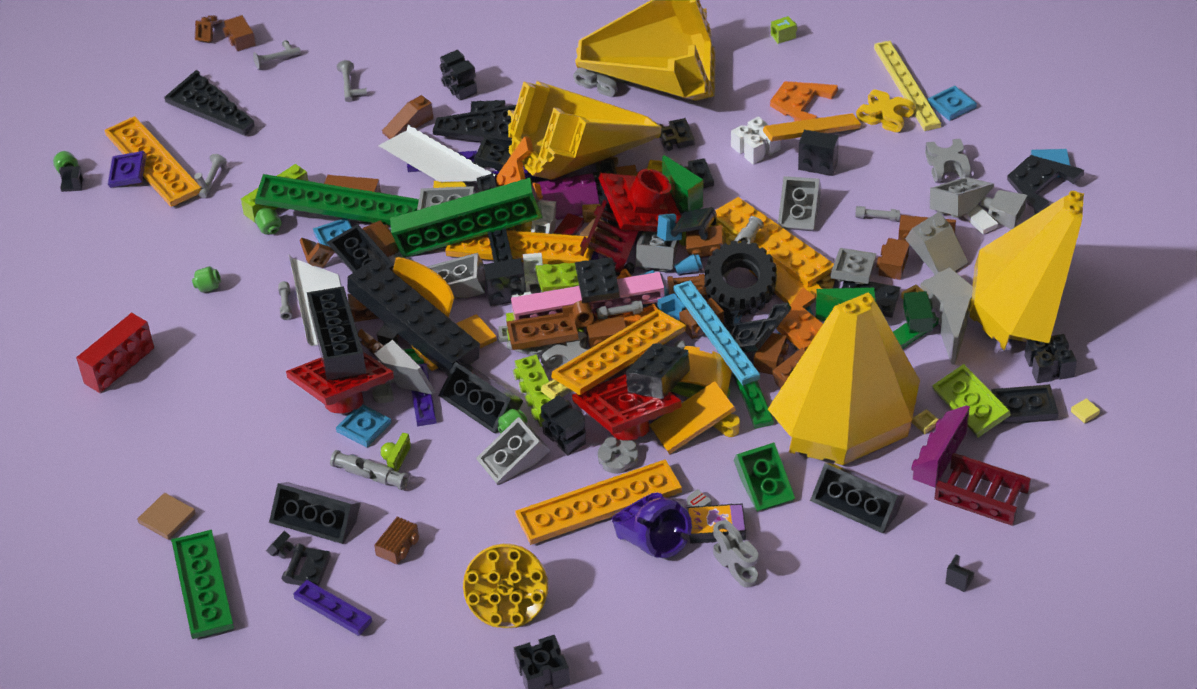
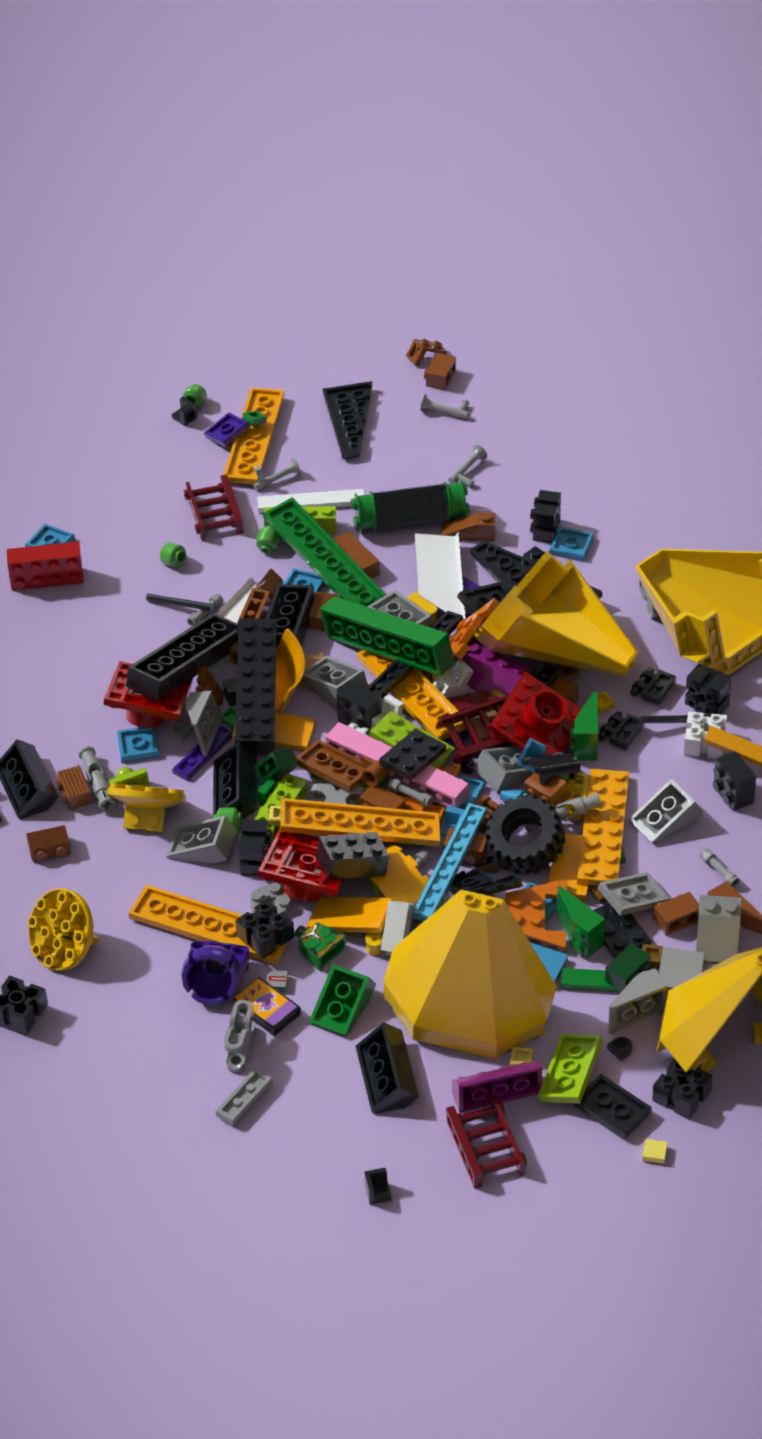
camera: 45 degrees right, 0 degrees up
(82, 336) = (50, 535): none -> dark azure tile
(143, 145) = (254, 418): none -> green plate
(192, 213) = (226, 498): none -> dark red fence
(251, 182) = (329, 498): none -> white tile
(259, 307) = (180, 602): none -> black bar
(331, 269) = (256, 605): none -> dark orange slope
(350, 129) = (410, 506): none -> black brick
(361, 488) = (74, 787): none -> dark orange brick
(440, 456) = (145, 804): none -> yellow bracket
(493, 85) = (571, 544): none -> dark azure tile
(503, 359) = (276, 765): none -> dark green brick
(512, 384) = (265, 790): none -> green plate
(652, 470) = (264, 928): none -> black brick
(694, 454) = (320, 944): none -> green torso
(716, 148) = (666, 719): none -> black bar
(723, 110) = (707, 690): none -> black brick
(743, 397) = (397, 924): none -> white slope
(788, 593) = (243, 1096): none -> light grey plate
(976, 365) = (620, 1047): none -> black tile

